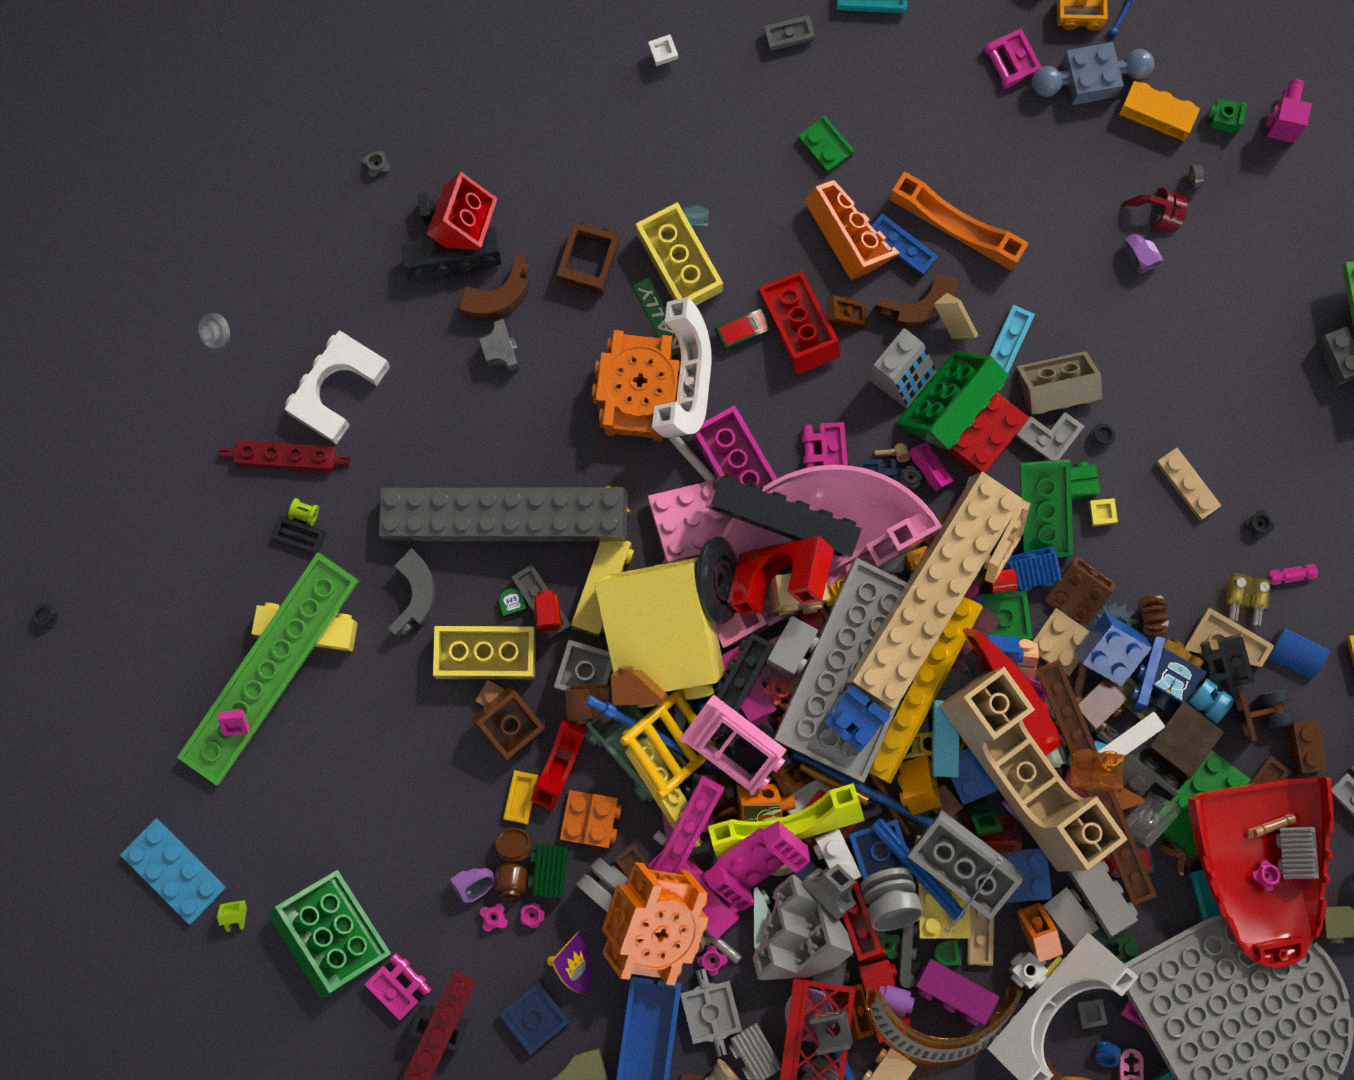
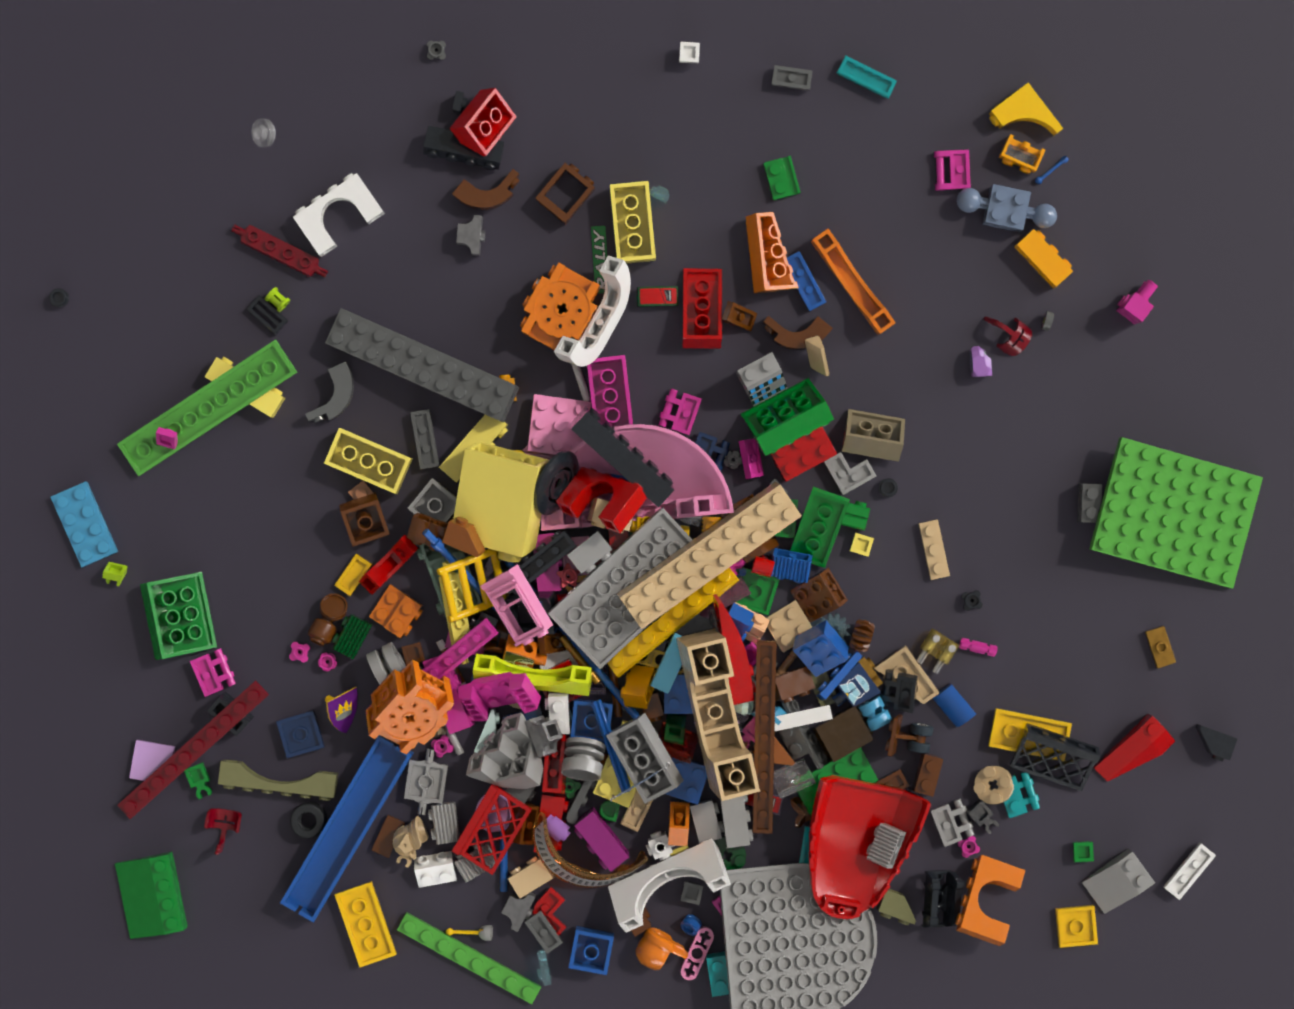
camera: 20 degrees right, 10 degrees up
(472, 884) = (294, 622): medium lavender rock -> none
(512, 602) = (403, 430): tile -> none
(547, 611) = (424, 451): red brick -> none
(832, 1043) = (496, 839): dark grey piece -> none
(855, 717) = (611, 622): blue hips -> none
(899, 451) = (734, 437): tan hand -> none
(1007, 544) = (777, 542): tan wing -> none
(1011, 336) = (851, 388): medium azure tile -> none
(1096, 771) = (766, 731): clear orange bracket -> none
(1224, 122) = (1094, 291): green brick -> none
(1271, 826) = (876, 818): medium nougat wheel -> none
(1272, 872) = (862, 853): dark pink plate -> none

